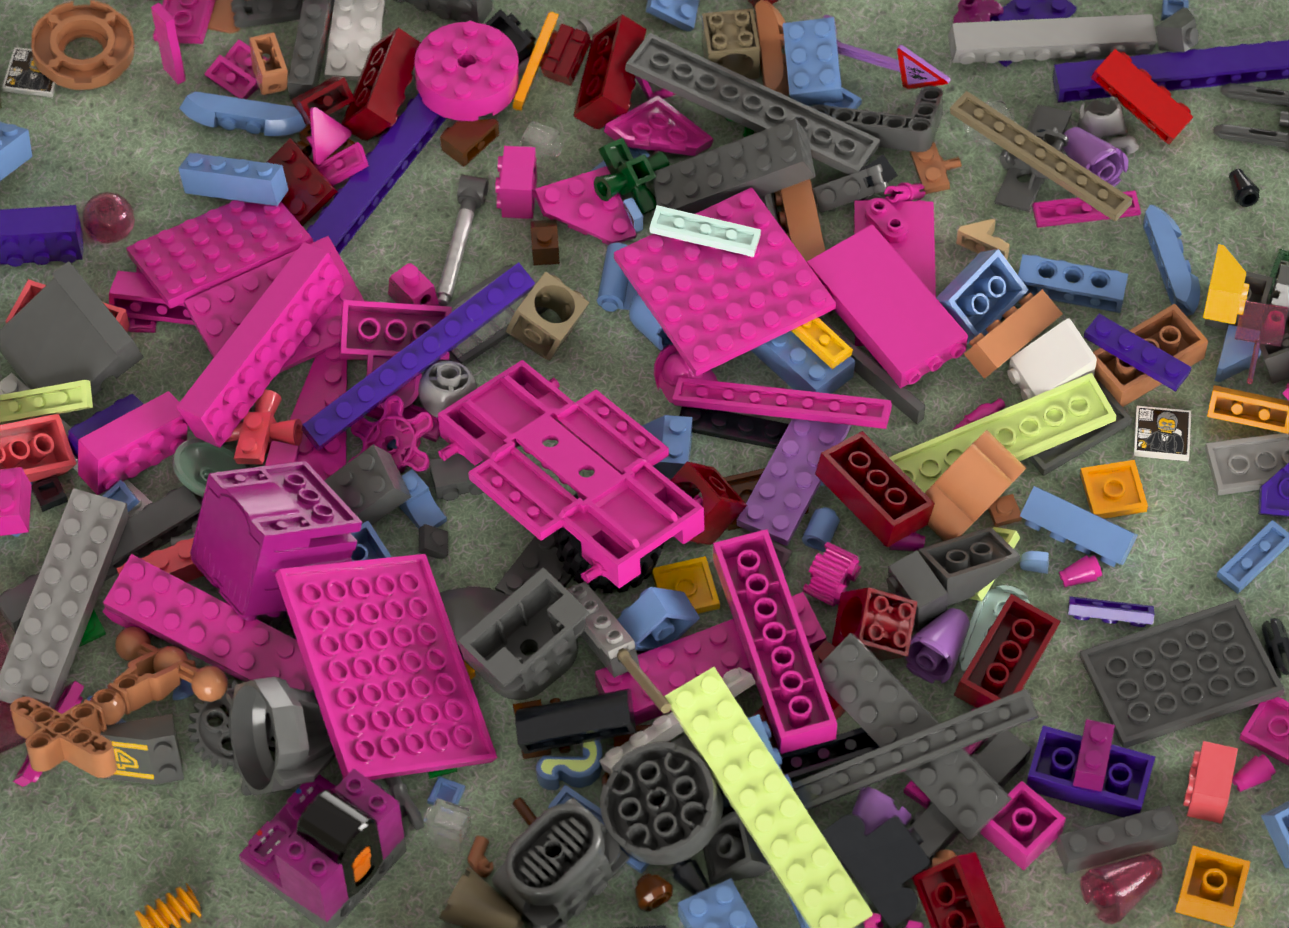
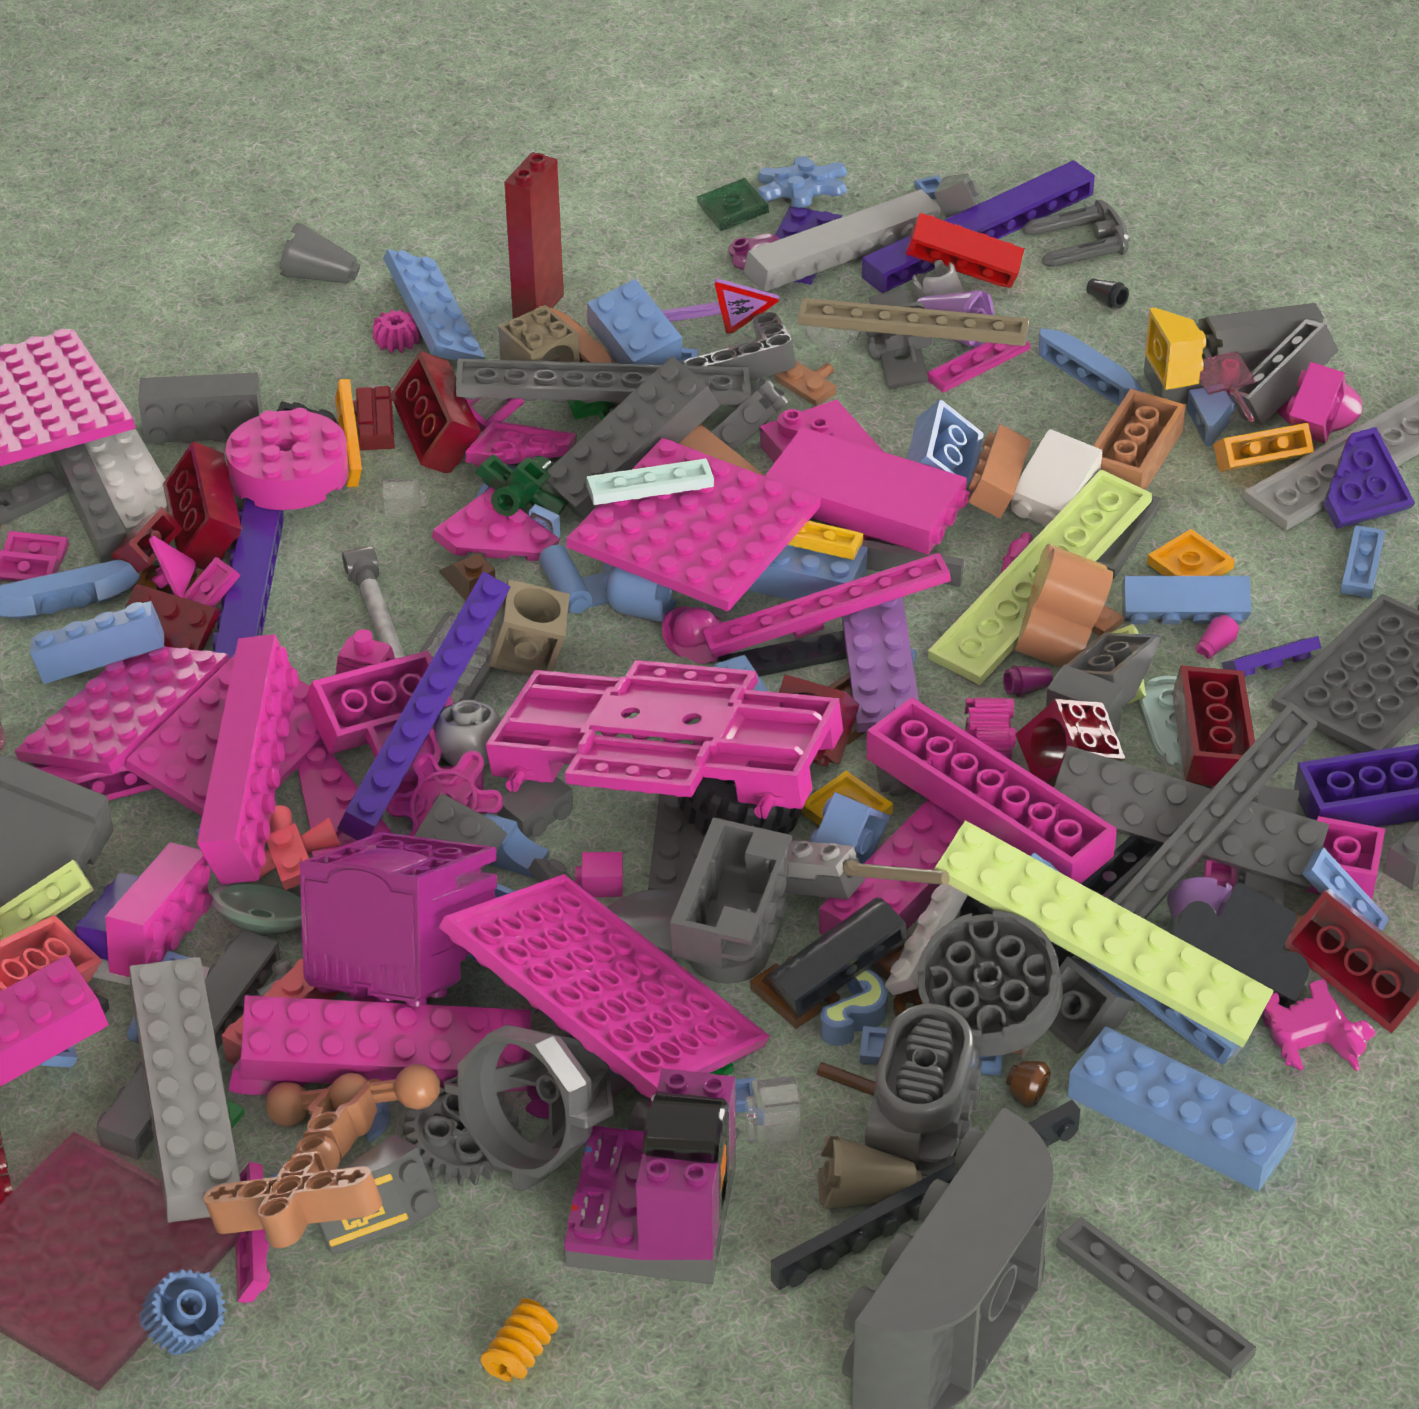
camera: 30 degrees left, 15 degrees down
(270, 74) = (67, 530): nougat torso -> none
(467, 559) = (601, 874): none -> dark pink brick
(468, 139) = (323, 524): reddish brown slope -> none
(477, 859) = (814, 1131): nougat arm -> none
(516, 182) = (408, 534): dark pink brick -> none
(690, 876) = (1055, 1052): black cone -> none
(821, 528) = (942, 699): medium blue brick -> none
(874, 489) = (977, 636): dark red brick -> none
(904, 192) = (801, 401): dark pink pin -> none
(938, 646) = (1143, 742): medium lavender cone -> none
(979, 238) = (898, 416): tan slope -> none
(994, 859) = (1327, 874): none -> medium blue plate
(1035, 561) = (1171, 645): light blue tile -> none
(1083, 291) = (1025, 414): medium blue brick -> none
(1093, 755) = (1373, 759): magenta brick -> none
(1137, 352) = (1132, 435): dark purple plate -> none
(1162, 433) = (1195, 502): tile -> none

